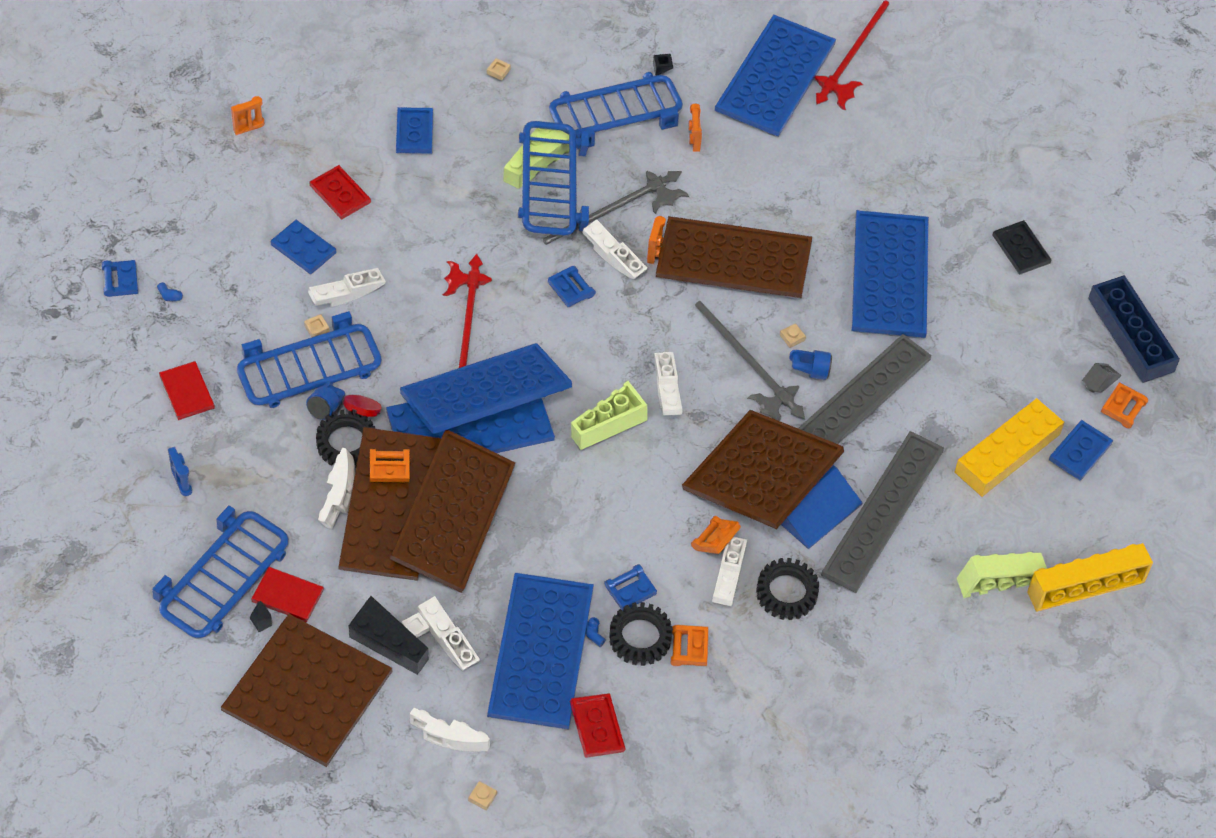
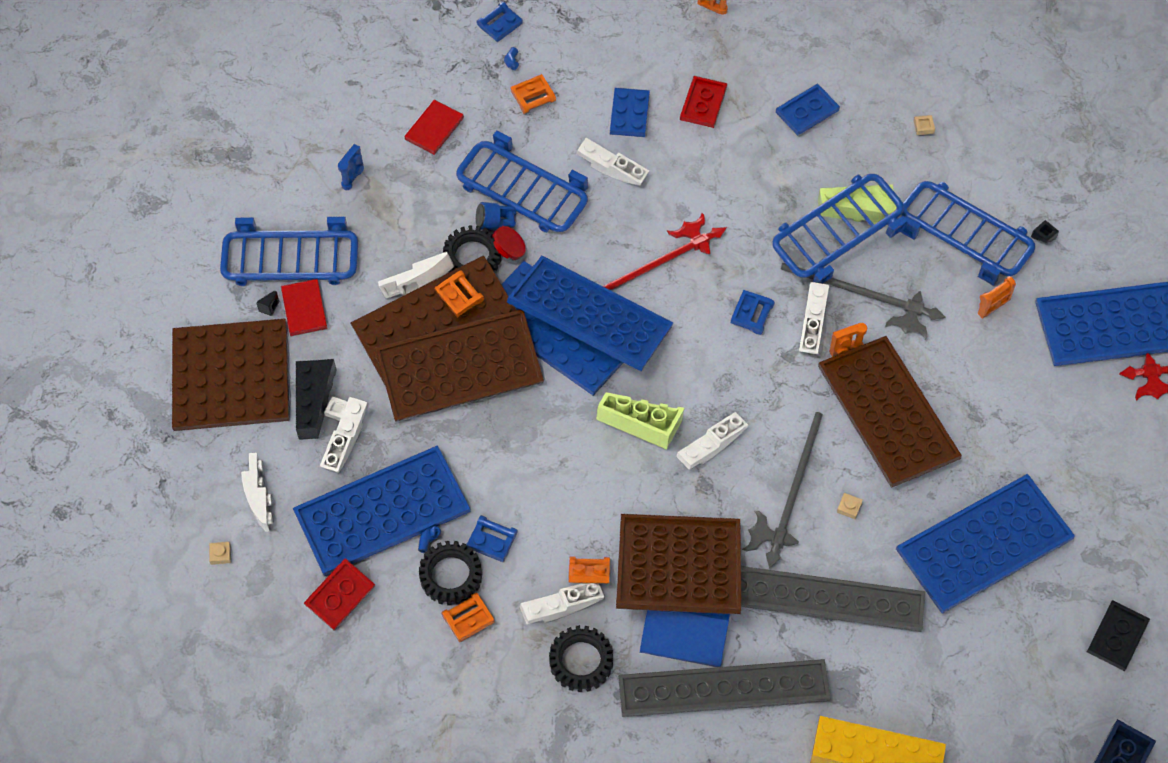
camera: 60 degrees right, 5 degrees up
(215, 299) = (531, 89): none -> orange plate
(316, 326) = (561, 167): tan plate -> none
(814, 363) = (830, 544): blue piece -> none

